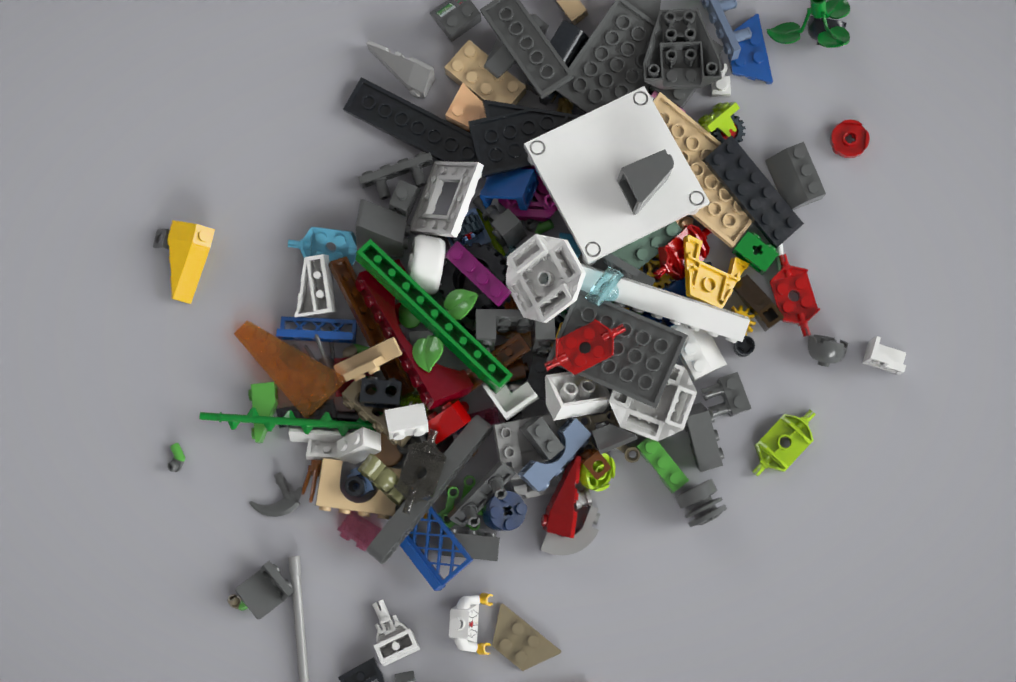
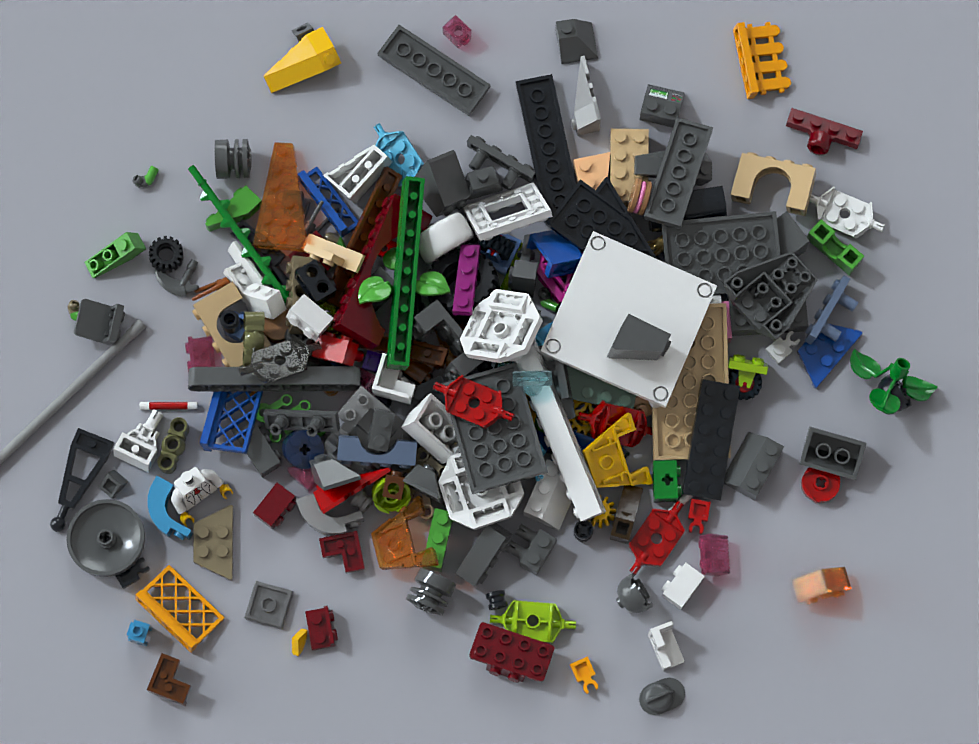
camera: 45 degrees right, 5 degrees down
(219, 533) = (115, 254): none -> bright green slope
(220, 377) = (232, 158): none -> dark grey wheel
(242, 489) = (170, 264): none -> black tyre
(258, 117) = (454, 25): none -> clear pink brick
(280, 163) = (434, 70): none -> dark grey plate
(348, 38) = (575, 40): none -> dark grey slope
(378, 589) = (168, 405): none -> red bar
(416, 621) = (174, 436): none -> olive piece
(458, 666) = (157, 505): none -> dark azure arch
(477, 399) = (371, 361): none -> dark purple plate
(521, 88) = (639, 196): none -> medium nougat head
(529, 526) = (303, 477): none -> clear pink slope
(530, 569) = (275, 506): none -> dark red brick
(546, 505) = (331, 473): none -> slope
(605, 638) = (268, 604): none -> flat silver tile
(608, 538) = (345, 545): none -> dark red plate
(637, 499) = (394, 541): none -> clear orange wing
(654, 638) = (299, 641): none -> yellow tile
(657, 612) = (320, 628): none -> dark red bracket
(745, 456) = (496, 600): none -> black wheel
(799, 247) = (698, 512): none -> red plate
(799, 479) = (511, 653): none -> dark red bracket
(835, 110) = (832, 453): none -> dark grey slope
(843, 262) = (714, 554): none -> clear pink brick
(847, 306) = (682, 586): none -> white brick
(855, 435) = (583, 672): none -> light orange plate
(919, 391) = (662, 696): none -> dark grey piece
(933, 199) = (821, 584): none -> clear orange brick

